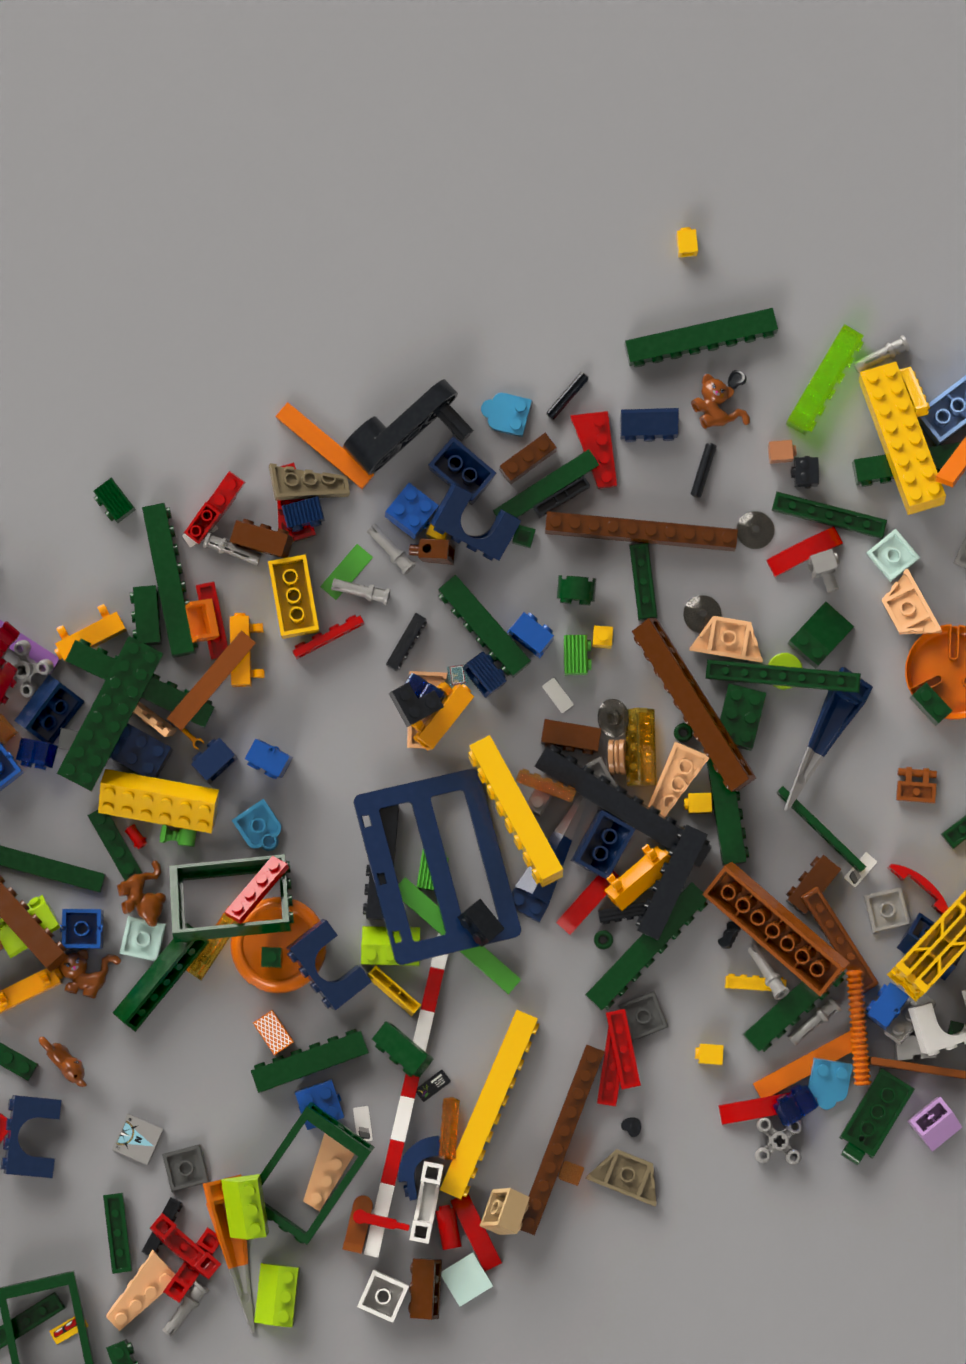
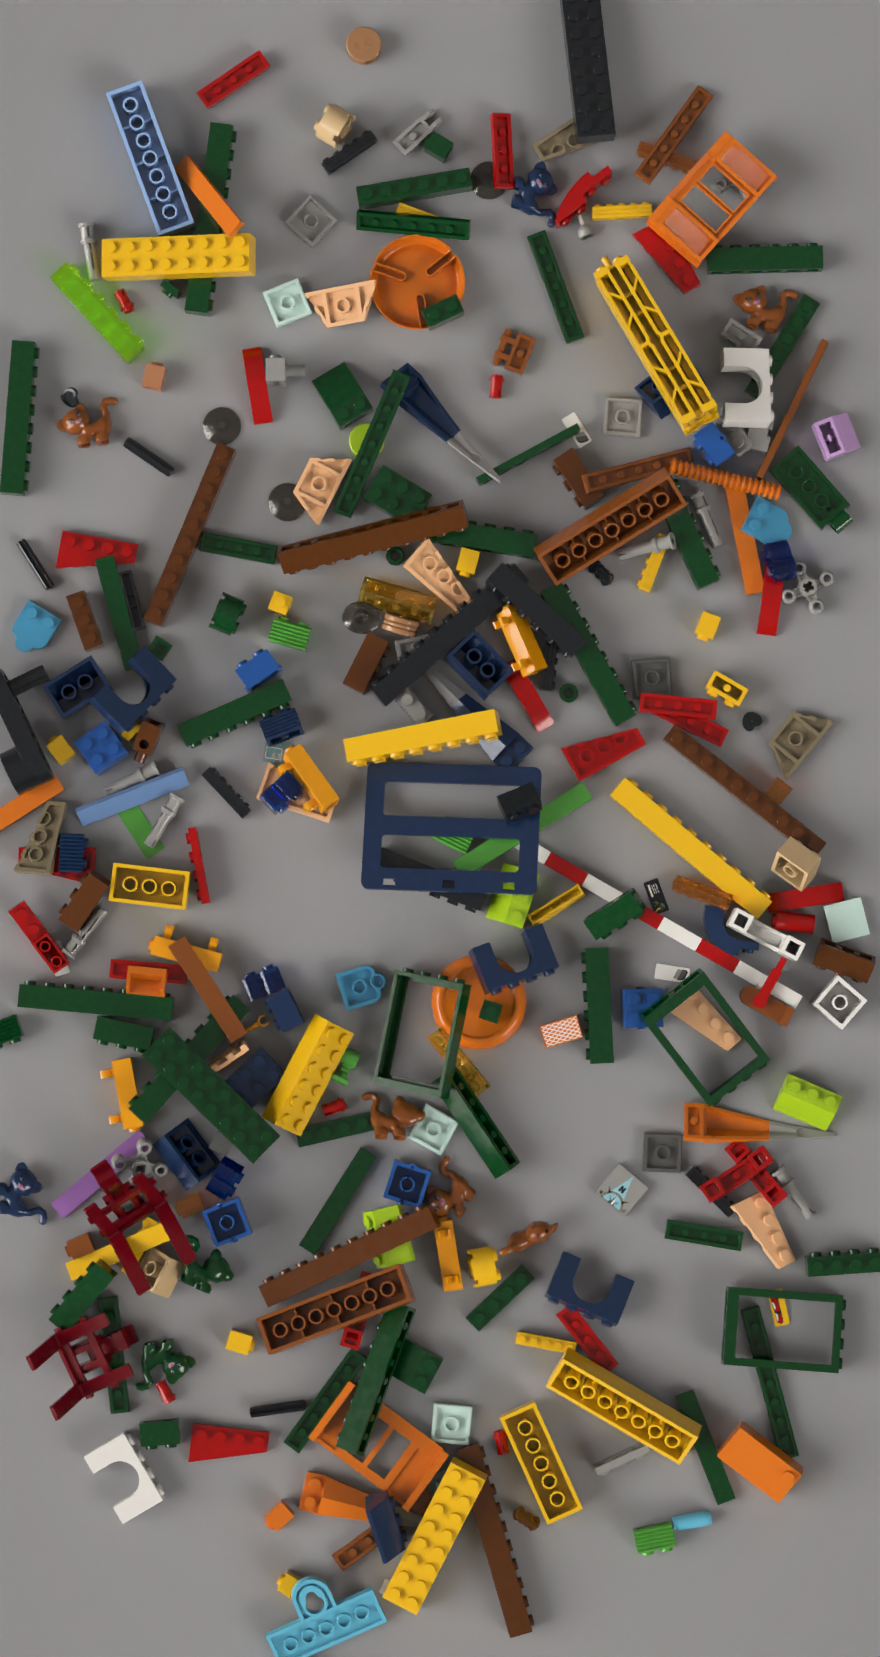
camera: 75 degrees left, 5 degrees up
(23, 1026) = (482, 1266): none -> yellow brick
(234, 732) = (263, 983): none -> clear blue brick
(245, 1207) = (718, 1106): lime slope -> none
(256, 889) = (422, 1006): plate -> none
(268, 758) = (297, 961): blue brick -> none
(374, 554) = (132, 796): none -> medium blue tile
(399, 473) = (60, 749): none -> yellow brick
(414, 709) = (295, 805): black brick -> none
(546, 785) = (407, 701): clear orange piece -> none
(553, 986) = (596, 754): none -> red wing
(557, 695) = (322, 664): white sticker -> none
(649, 424) = (89, 494): dark blue slope -> none
(654, 1091) = (726, 689): none -> yellow brick
(805, 472) = (181, 360): black head -> none
(829, 515) = (229, 351): dark green tile -> none
(841, 404) = (124, 302): none -> red pin
(868, 440) = (169, 290): none -> dark green plate
(877, 778) = (496, 386): none -> red pin
(901, 872) = (592, 391): red slope -> none
(915, 392) = (137, 230): yellow piece -> none

